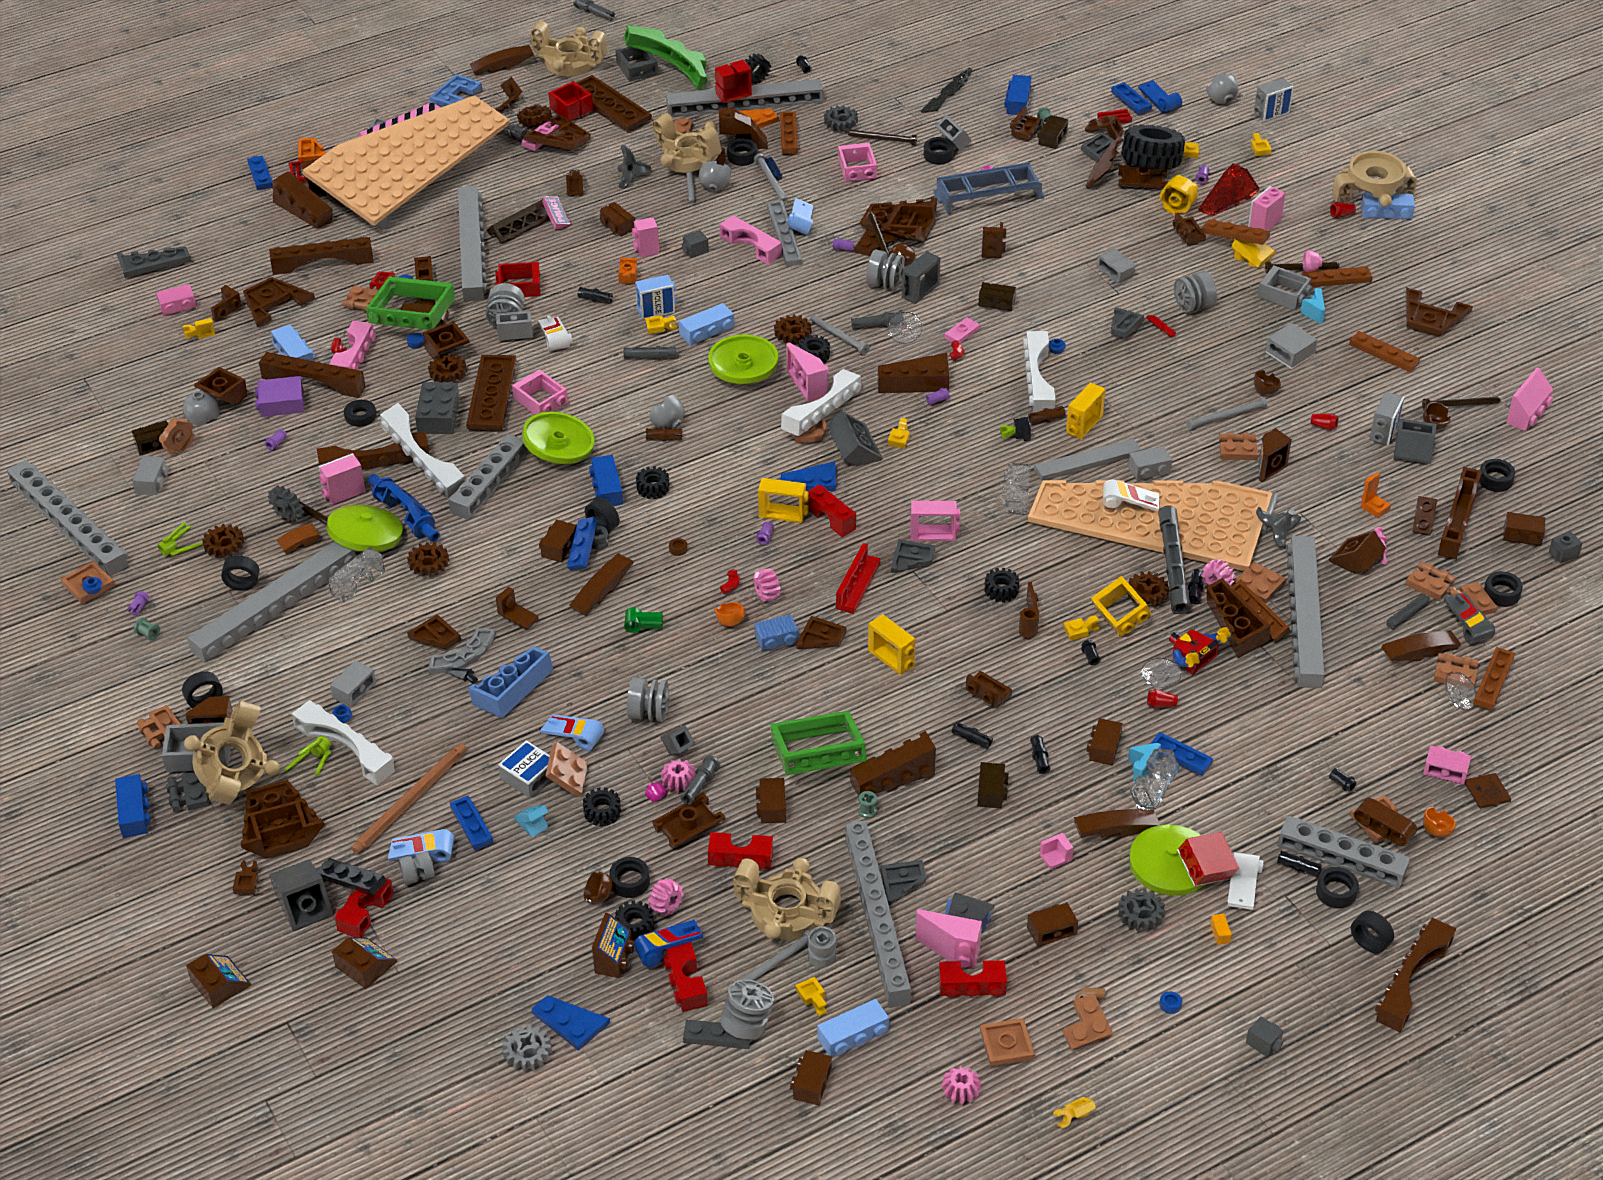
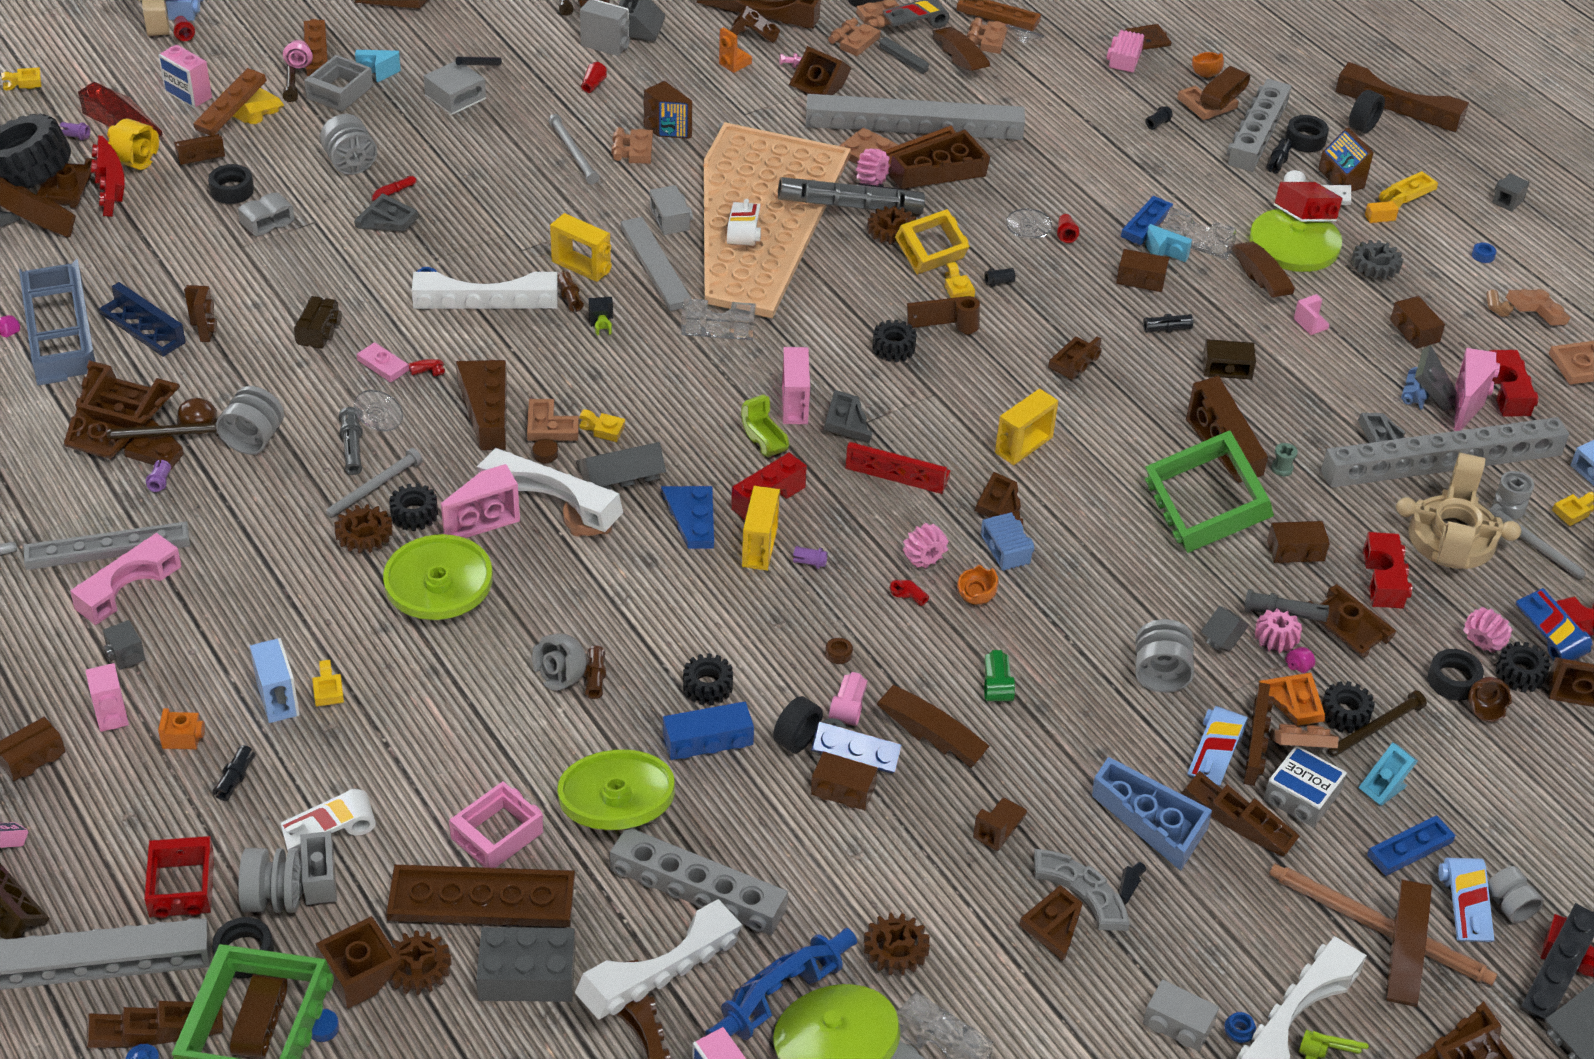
camera: 95 degrees left, 0 degrees up
(385, 800) = (1409, 943): none -> reddish brown slope
(468, 299) = (242, 928): none -> black tyre
(513, 733) = (1245, 818): none -> reddish brown slope
(587, 751) = (1257, 742): none -> reddish brown plate
(606, 849) = (1416, 701): none -> dark brown bar
(613, 778) = (1297, 698): none -> orange wing
(624, 545) = (848, 702): none -> bright pink piece
(649, 352) = (398, 686): dark grey pin -> none
(706, 324) = (339, 626): light blue brick -> none
(800, 216) = (95, 522): light blue door -> none
(873, 408) = (545, 451): none -> reddish brown tile
(892, 510) = (762, 428): none -> lime animal
(897, 404) = (544, 425): none -> nougat plate
(917, 289) = (291, 392): dark grey window -> none
(938, 396) = (525, 383): medium lavender pin -> none
(972, 735) = (1149, 375): black pin -> none
(1007, 215) = (149, 318): none -> dark blue fence
(1143, 193) = (108, 174): none -> red slope
(1153, 240) = (231, 173): none -> black tyre
(1196, 649) = (990, 197): torso -> none
(1259, 955) = (1408, 189): none -> yellow hinge
(1266, 384) = (524, 111): reddish brown hair -> none
(1280, 524) = (779, 118): dark grey piece -> none
(1281, 904) = (1346, 160): none -> slope
(1335, 365) = (480, 61): none -> black bar
(1384, 351) = (464, 28): dark orange plate -> none

